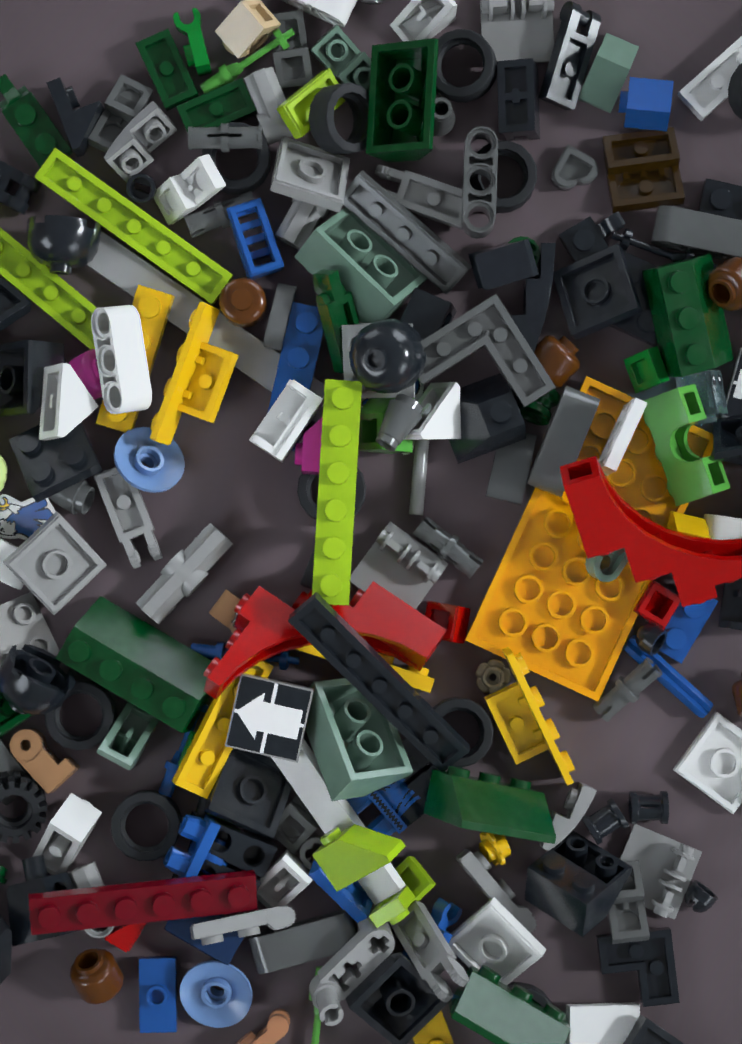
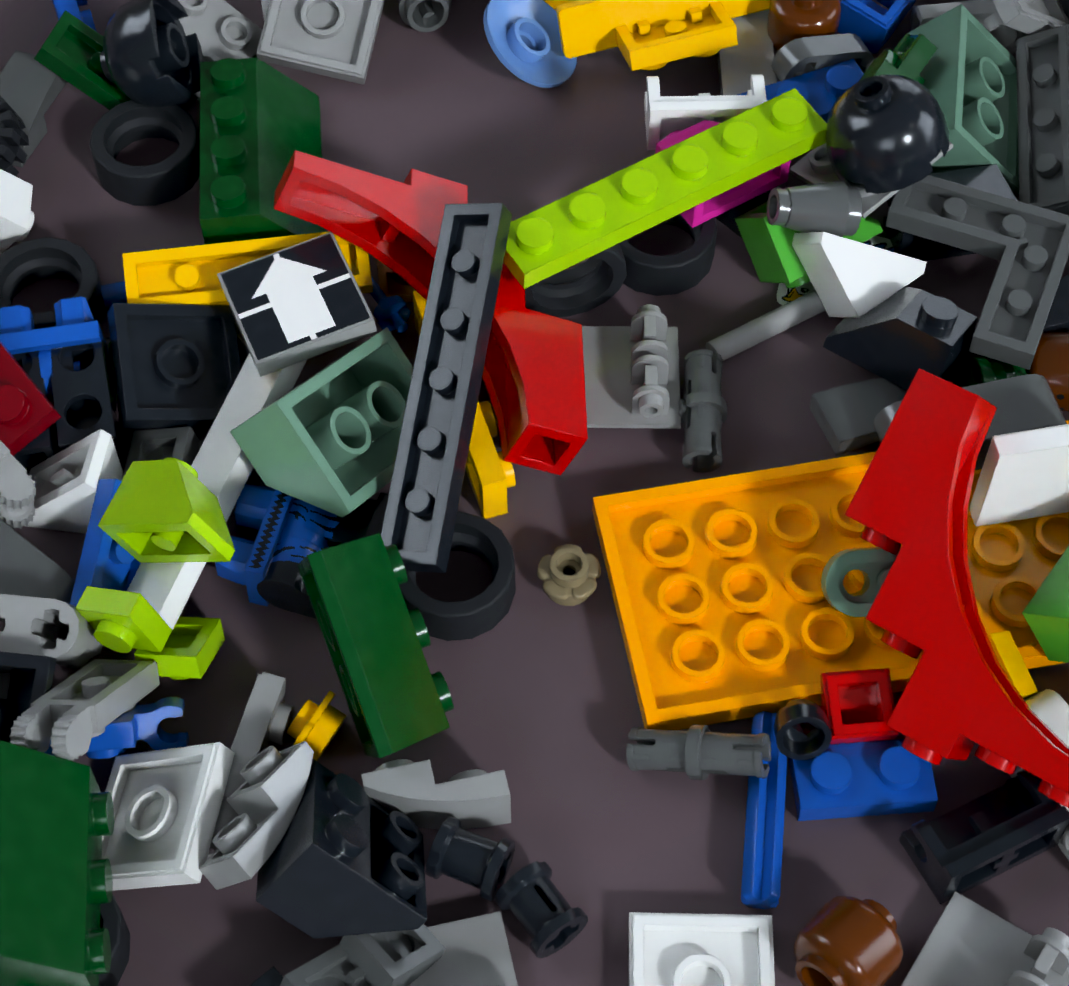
camera: 55 degrees right, 30 degrees down
(39, 761) = (54, 143): medium nougat leg -> none
(127, 514) = (440, 66): light grey hinge -> none
(128, 736) = (149, 208): sand green slope -> none
(184, 573) = (419, 144): light grey piece -> none
(451, 618) = (599, 471): red slope -> none
(521, 721) = (534, 639): yellow bracket -> none
(531, 896) = (265, 811): none -> light grey slope

